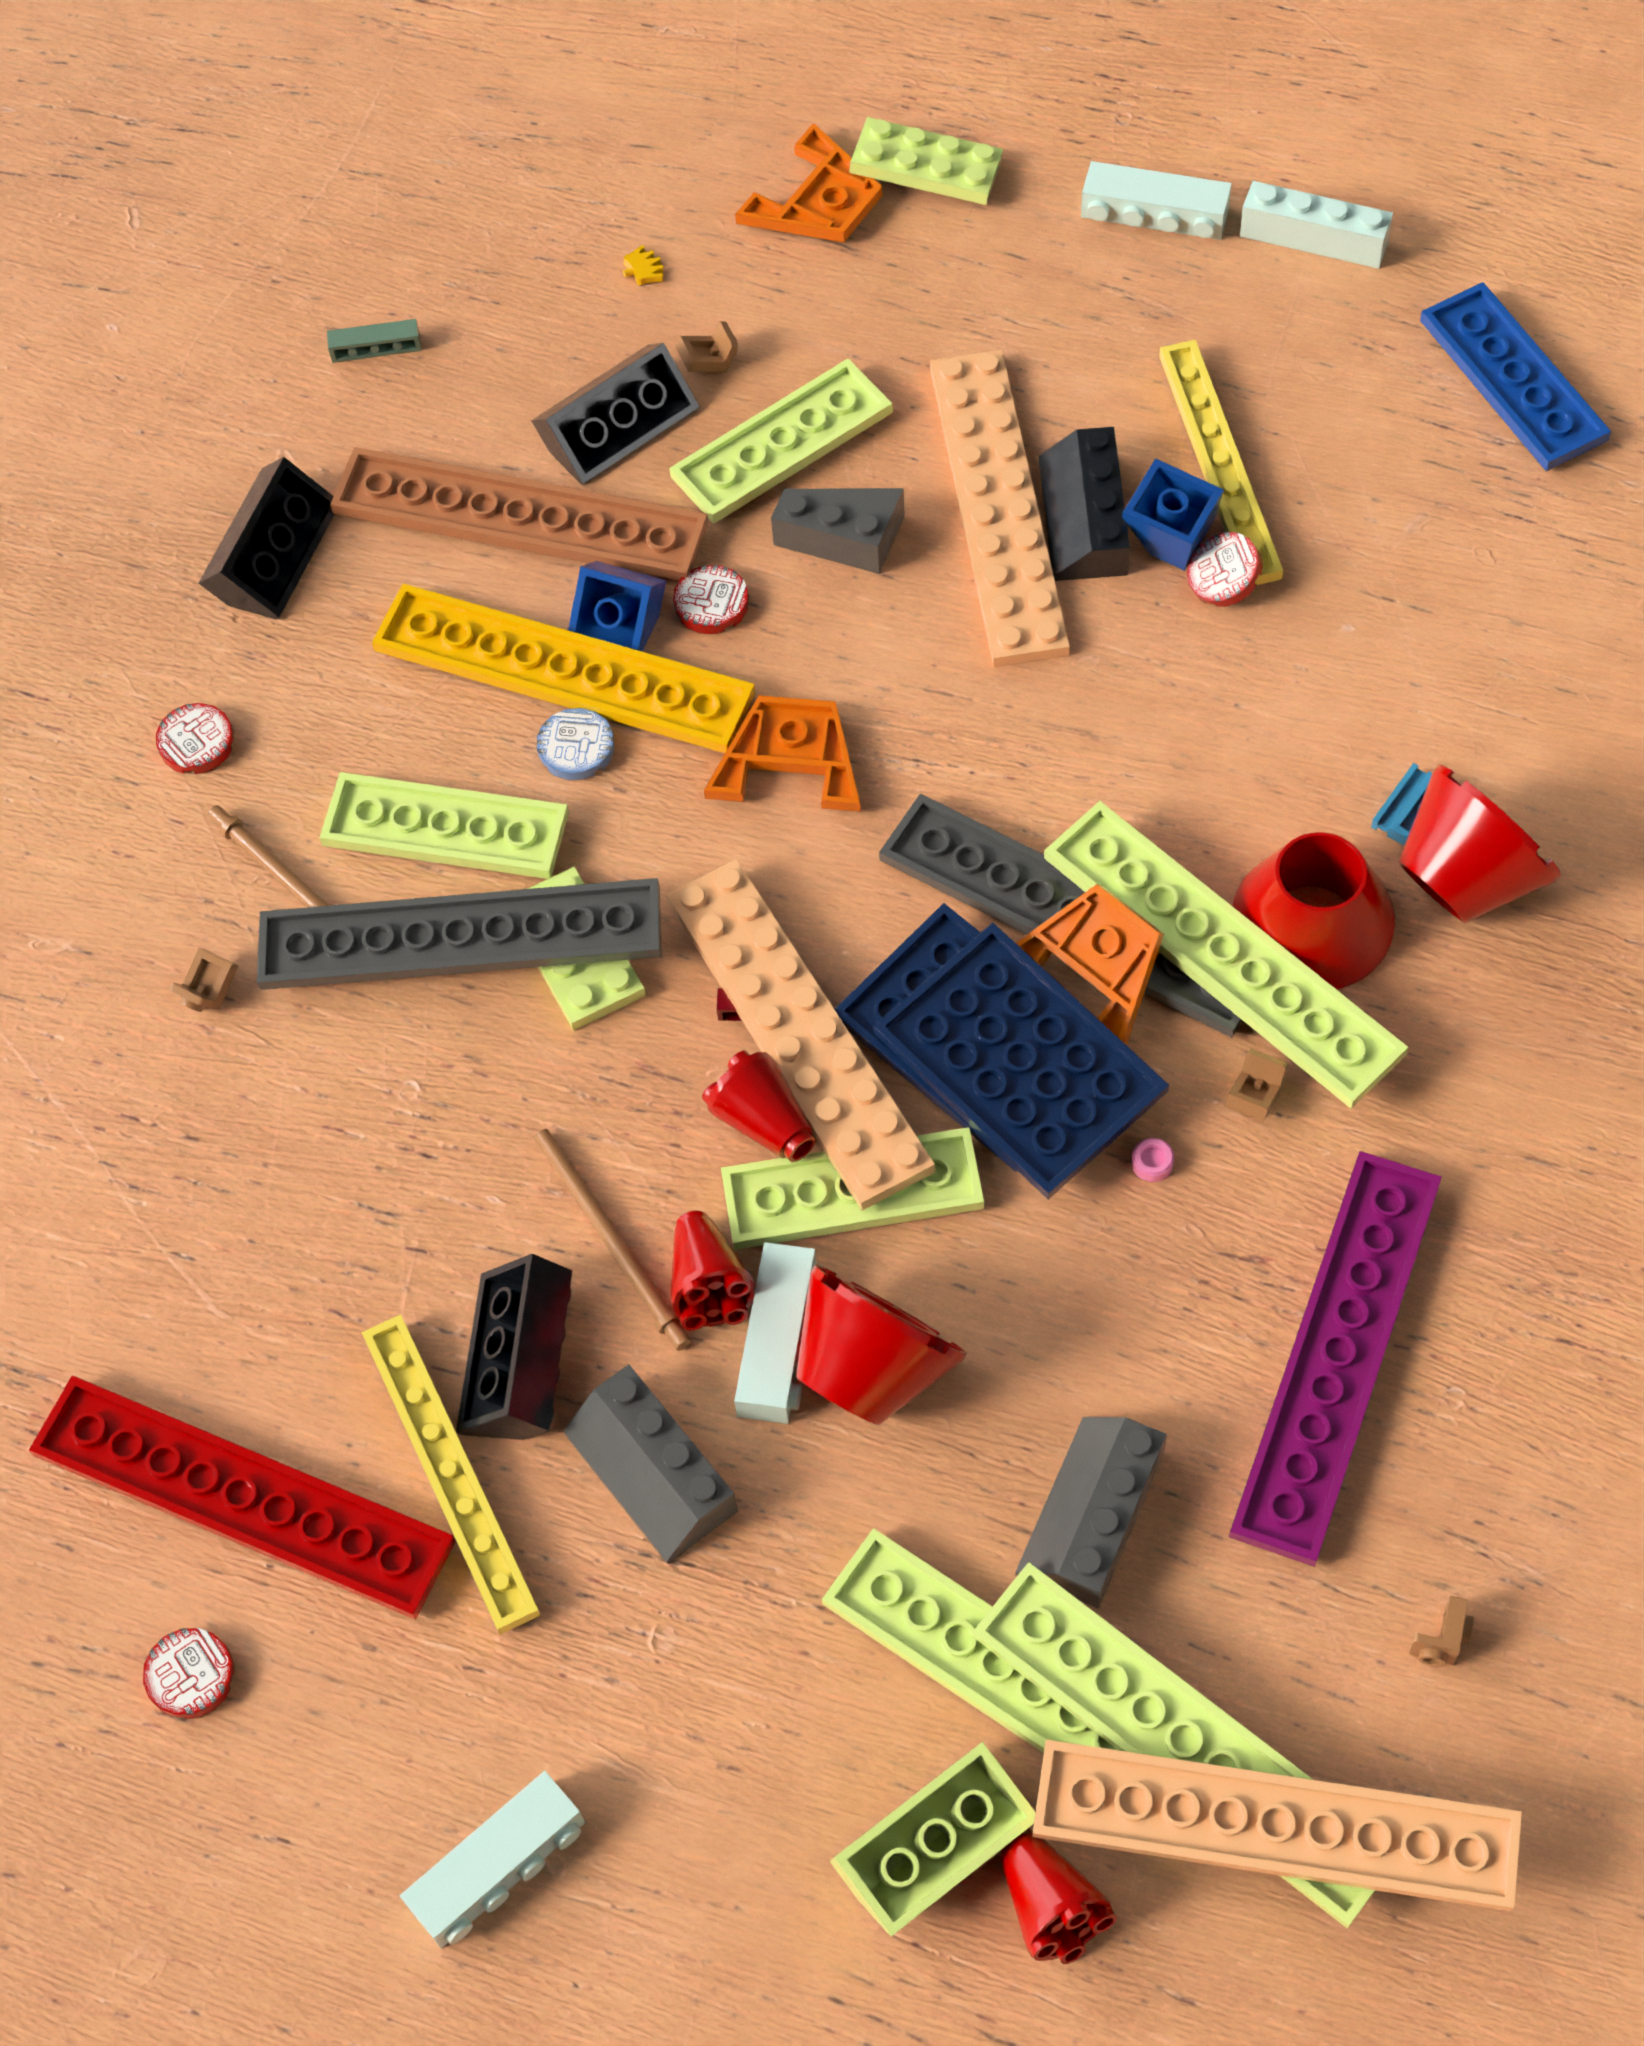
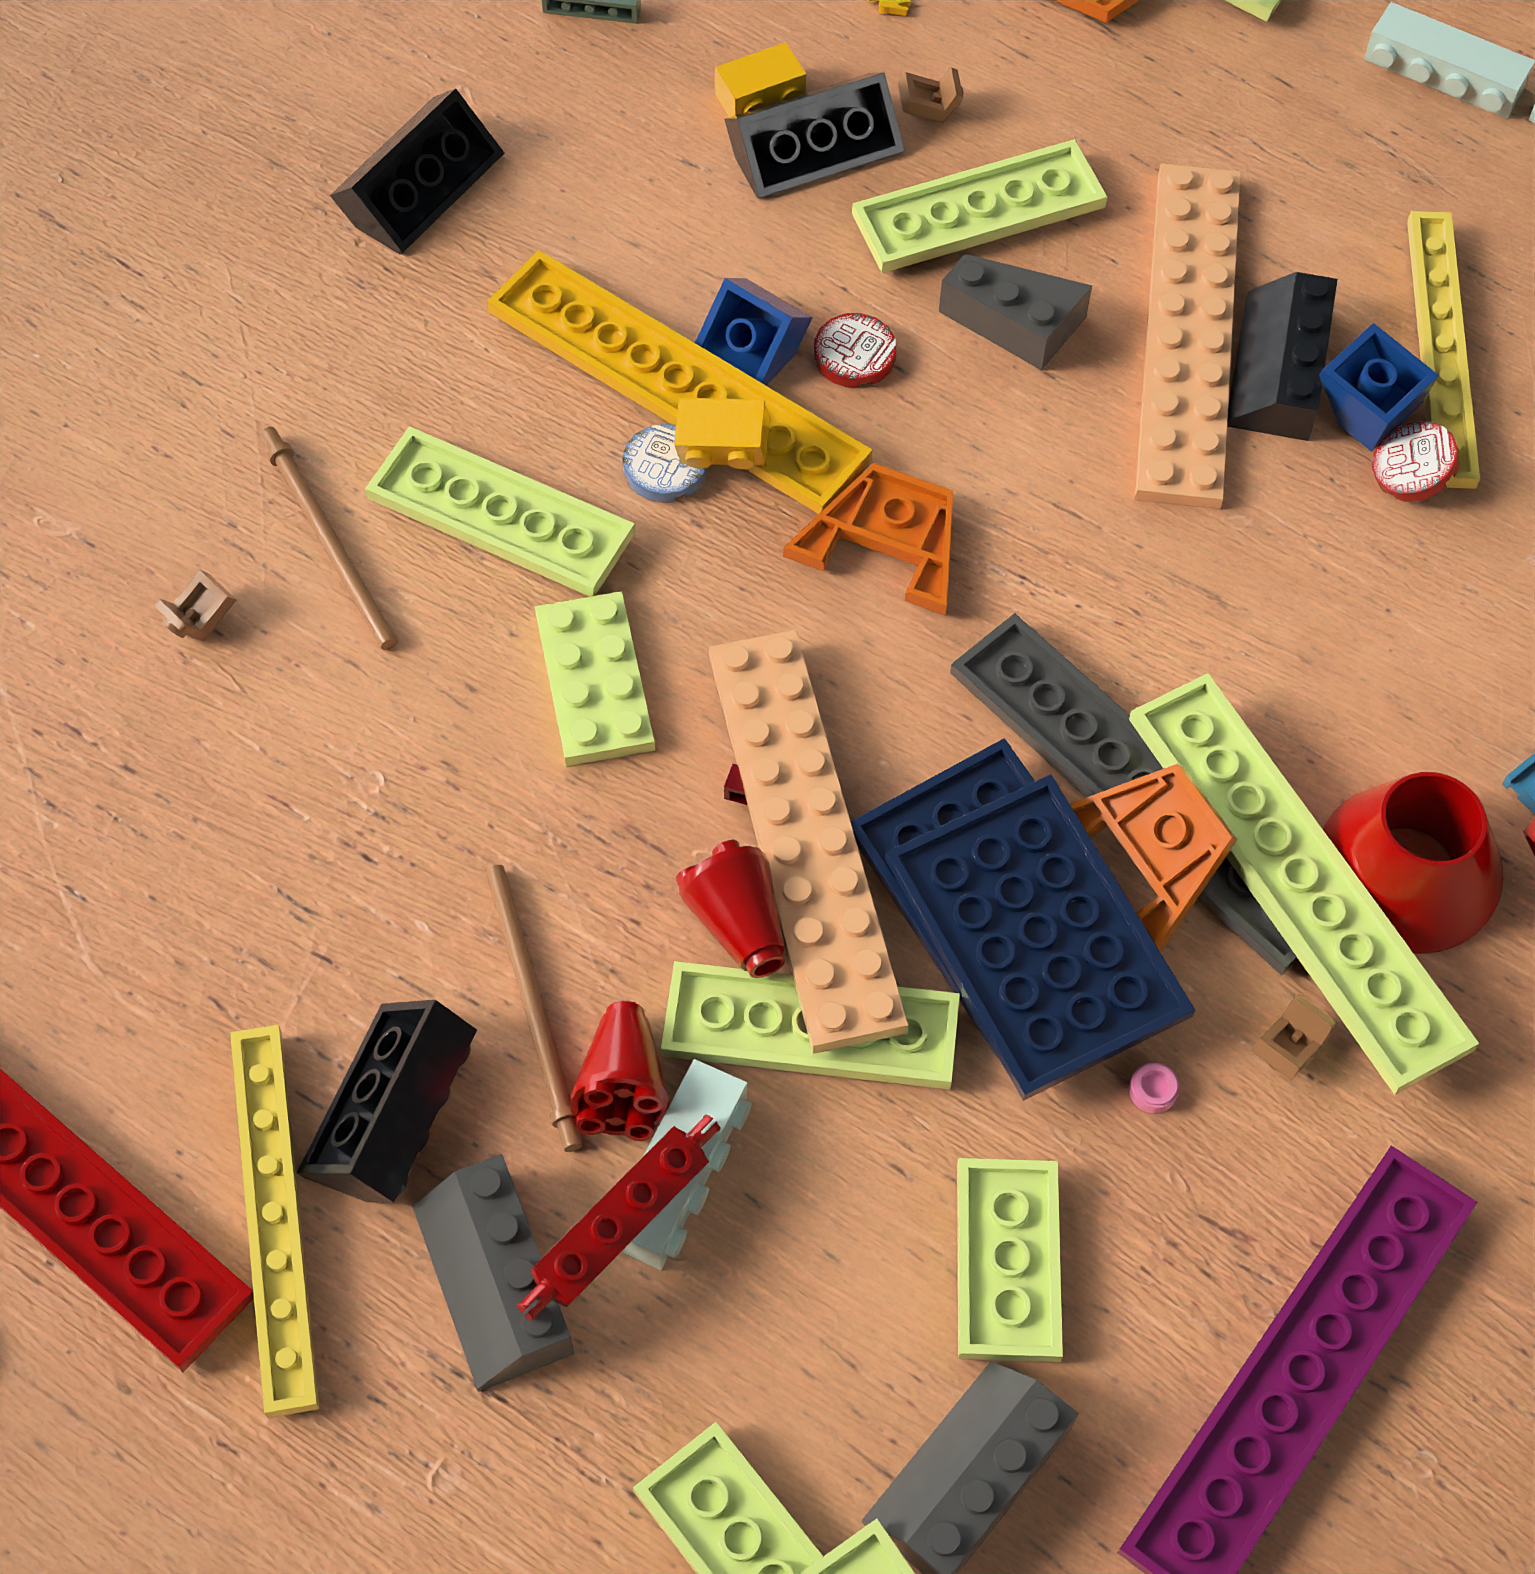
camera: 10 degrees right, 0 degrees up
(194, 738) = (274, 352): tile -> none
(459, 934) = (477, 630): dark grey plate -> none
(520, 513) = (685, 211): nougat plate -> none
(551, 377) = (759, 79): none -> yellow brick
(620, 704) = (722, 432): none -> yellow brick
(744, 1385) = (618, 1217): none -> red plate
(867, 1349) = (769, 1214): red cone -> none
(1073, 1332) = (1008, 1260): none -> yellowish green plate

